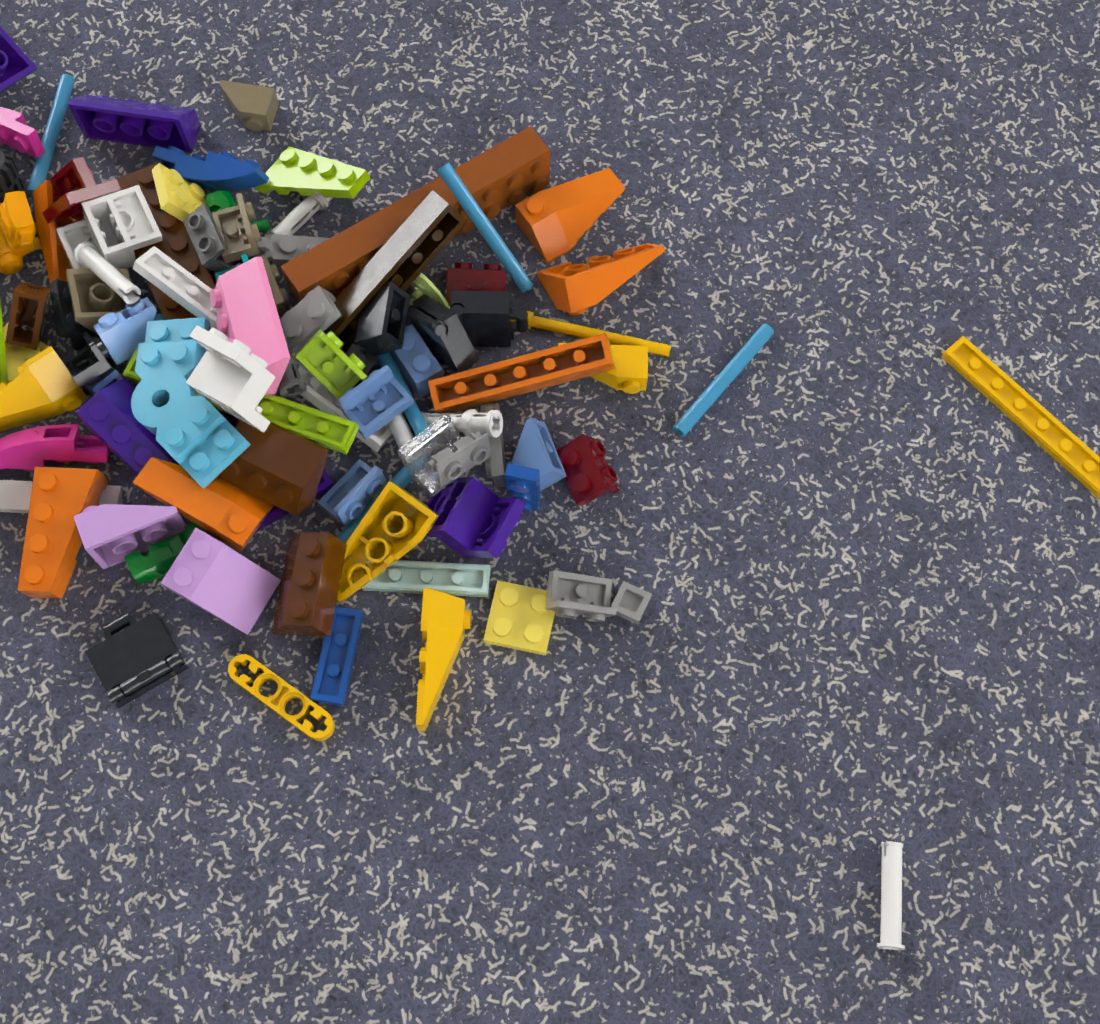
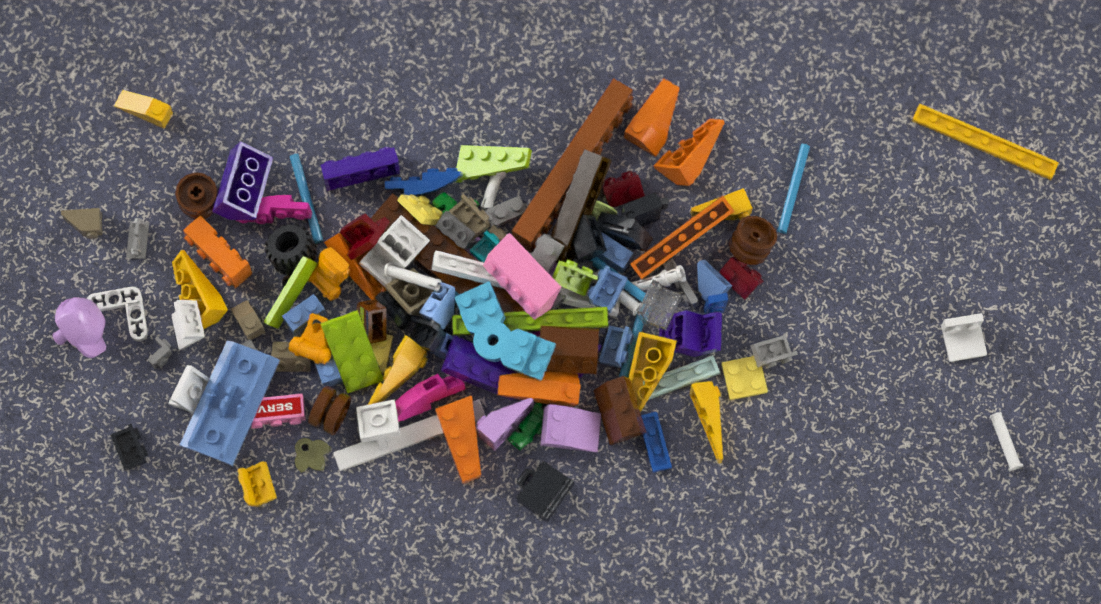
camera: 25 degrees left, 5 degrees up
(231, 377) = (535, 312): white bracket -> none
(251, 104) = (423, 127): dark tan slope -> none
(284, 694) = (635, 475): yellow beam -> none
(470, 451) = (677, 294): light grey hinge -> none
(485, 227) = (616, 154): dark azure piece -> none
(586, 332) = (708, 191): yellow bar -> none
(626, 421) = (752, 240): none -> reddish brown wheel
(631, 602) = (801, 343): light grey plate -> none
(890, 699) = (964, 337): none -> white bracket

